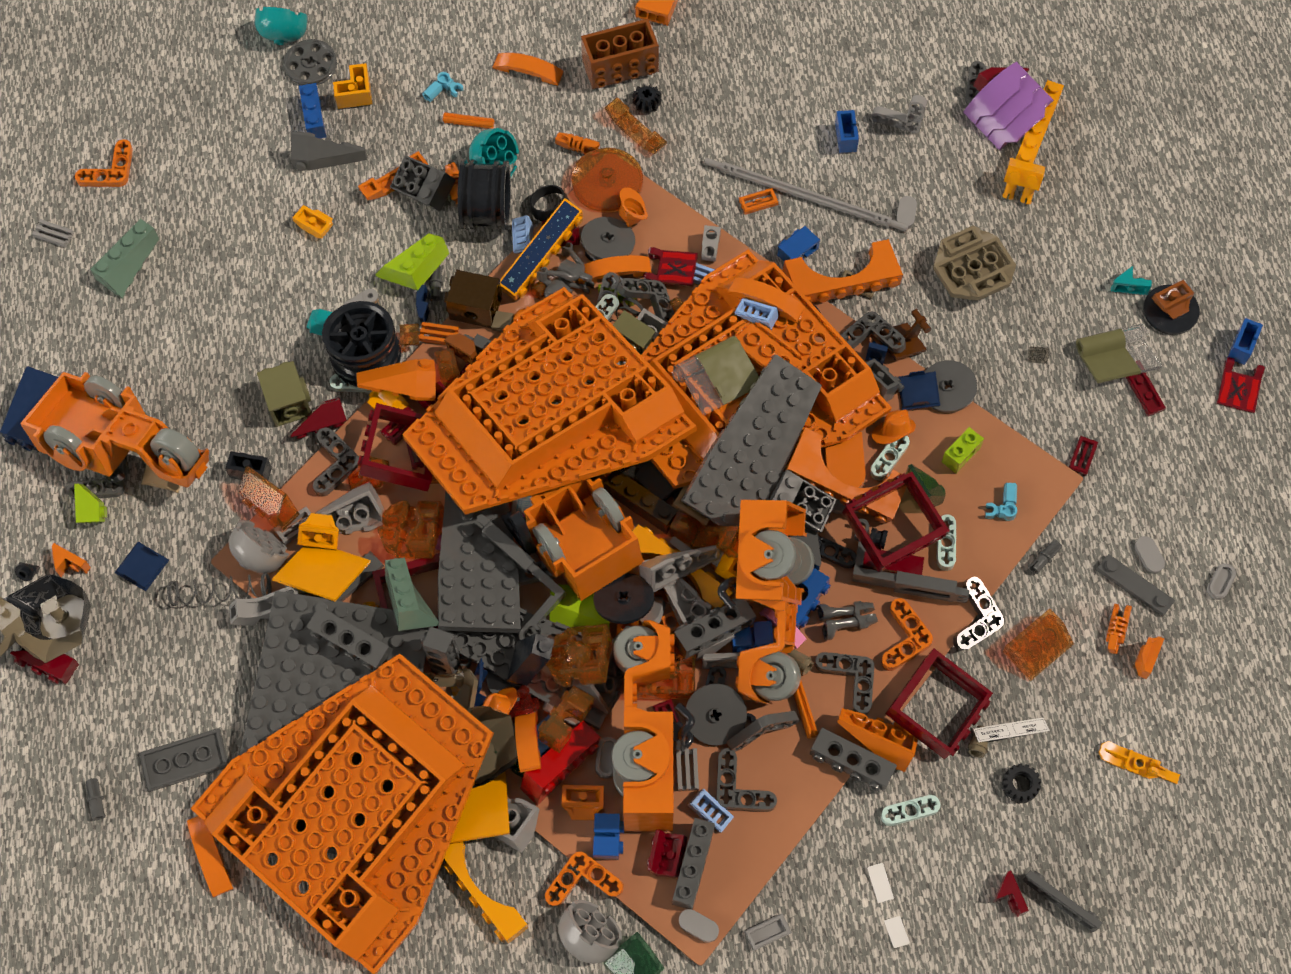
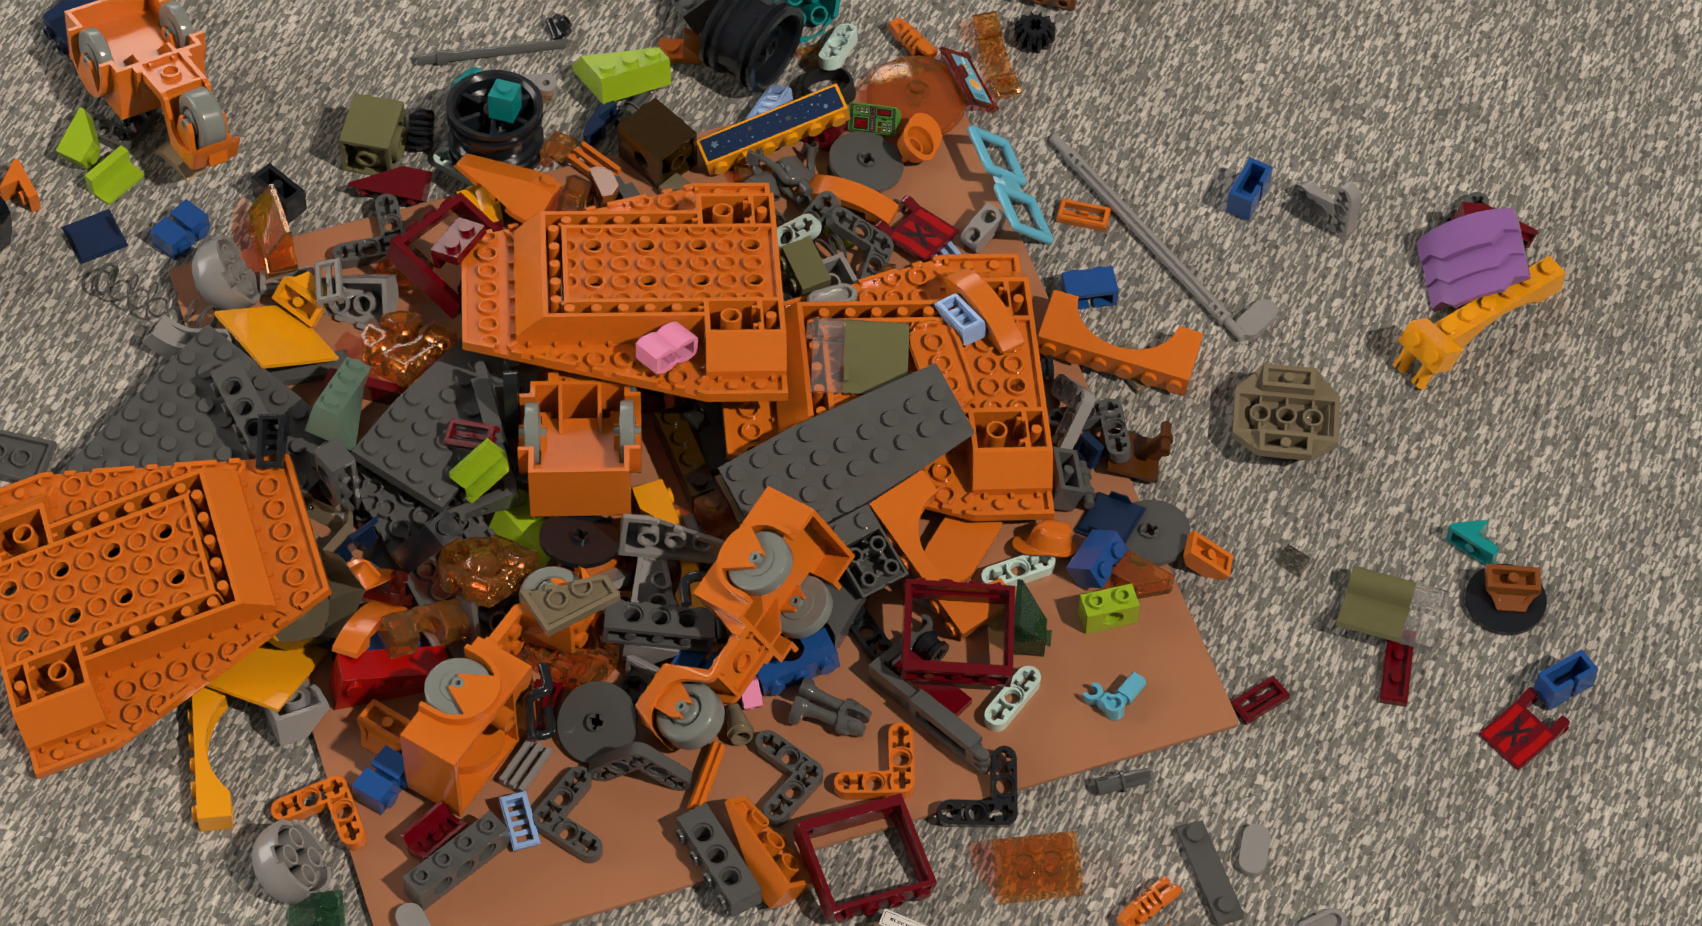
camera: 30 degrees right, 10 degrees down
(126, 517) = (113, 176): none -> lime panel
(200, 533) = (179, 236): none -> blue piece
(288, 314) = (442, 57): none -> dark grey bar
(311, 371) = (421, 129): none -> black gear
(341, 525) = (330, 298): none -> light grey tile
(349, 253) = (559, 26): none -> black plate
(366, 325) = (504, 100): none -> teal brick
(370, 639) = (264, 421): none -> black slope
(404, 440) = (457, 242): none -> dark red bracket
(442, 224) = (682, 50): none -> orange slope
(522, 185) = (810, 55): none -> clear orange tile
(524, 565) = (492, 430): none -> dark red tile
(532, 590) = (480, 469): none -> lime panel
(533, 178) = (838, 46): none -> light aqua beam
(596, 208) = (874, 119): none -> slope
(600, 439) = (666, 347): none -> bright pink brick
(630, 150) = (968, 79): none -> clear red door
(661, 651) = (568, 604): none -> dark tan wing
(666, 340) = (837, 292): none -> light grey tile
(702, 204) = (1009, 184): none -> medium azure bar
(854, 329) = (1079, 402): none -> light grey beam
(934, 421) = (1096, 557): none -> blue piece
(962, 417) = (1145, 576): none -> clear orange slope
(991, 382) = (1207, 557): none -> orange slope

